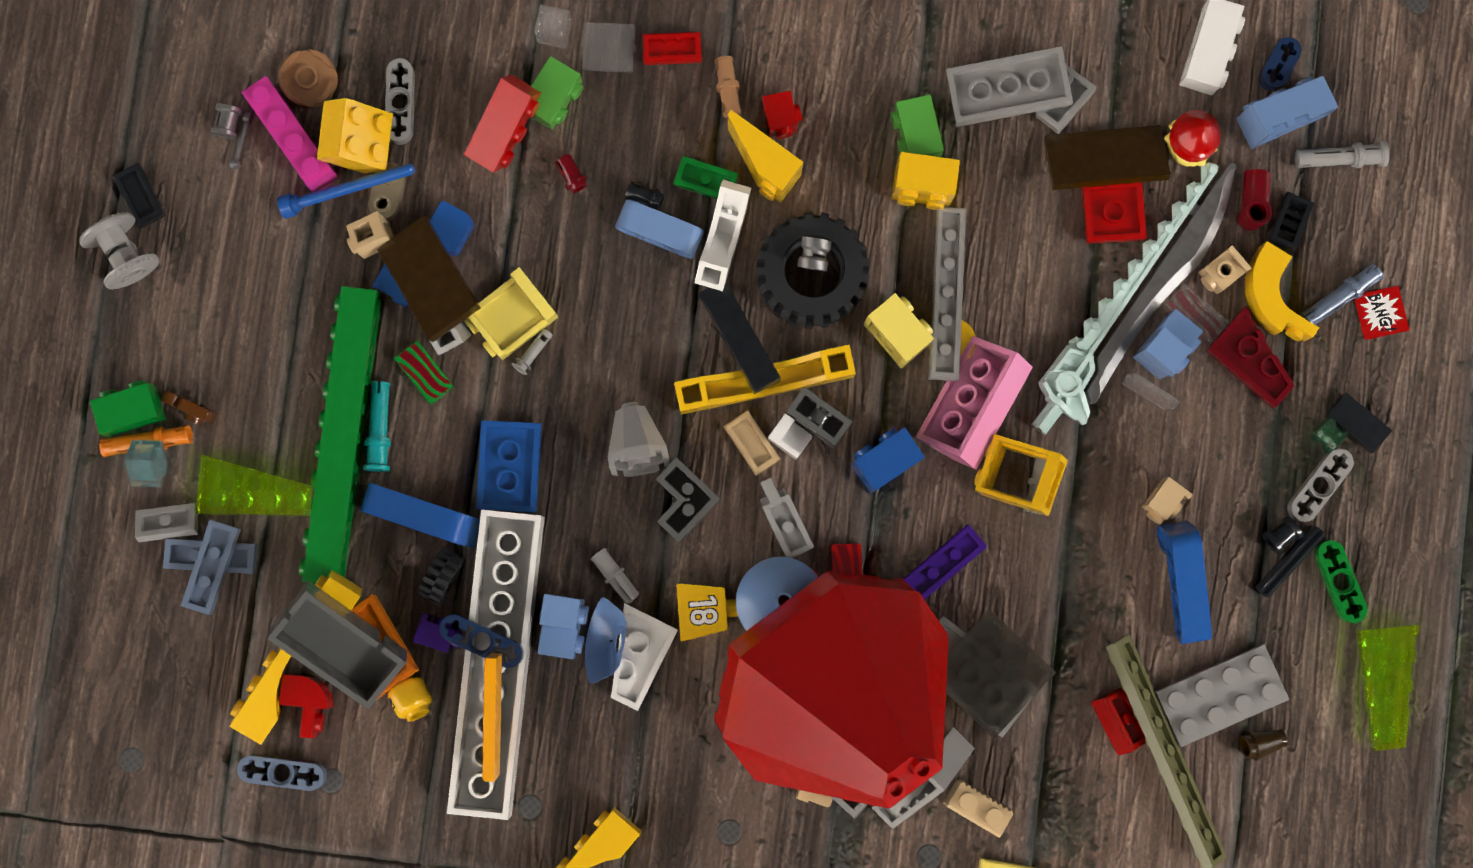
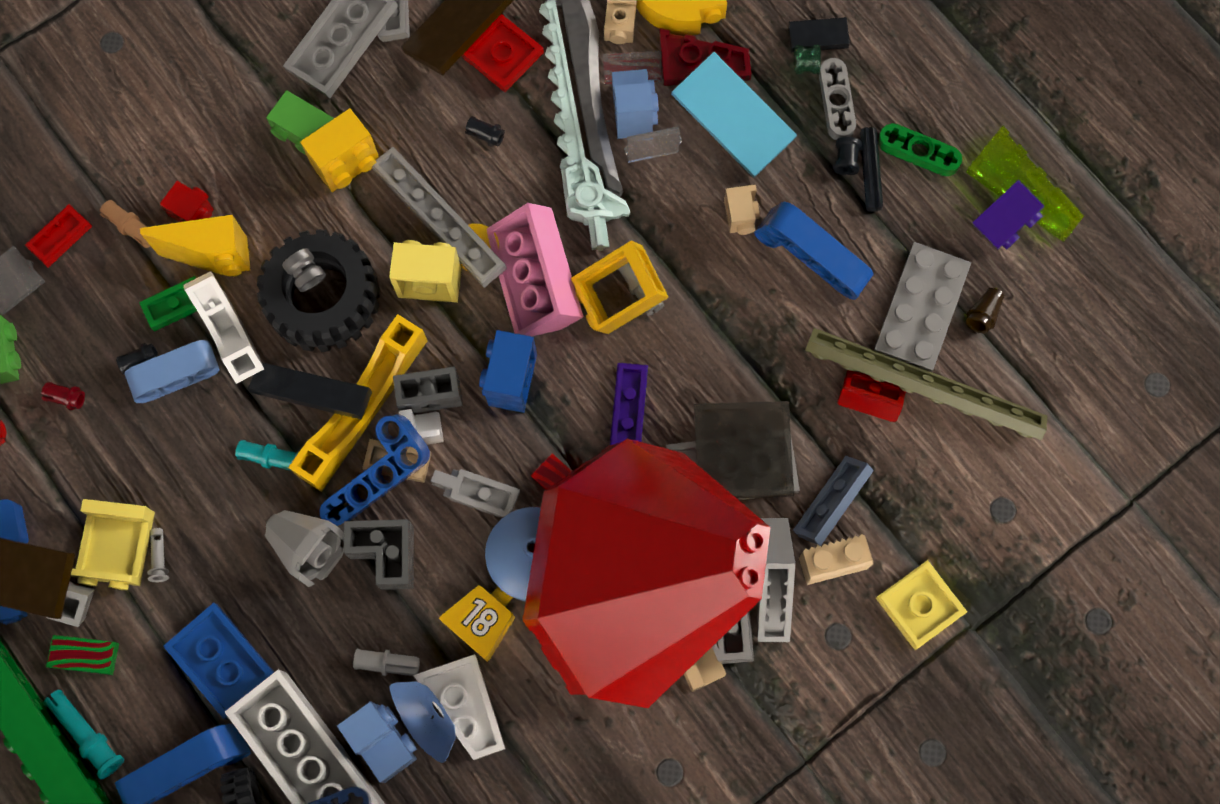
camera: 40 degrees left, 10 degrees down
(668, 354) = (265, 455): none -> teal pin
(723, 443) = (372, 477): none -> blue beam
(1018, 766) = (833, 500): none -> sand blue plate
(1042, 261) = (491, 134): none -> black pin
(1231, 426) = (734, 114): none -> medium azure tile
(1349, 695) = (1008, 216): none -> dark purple brick

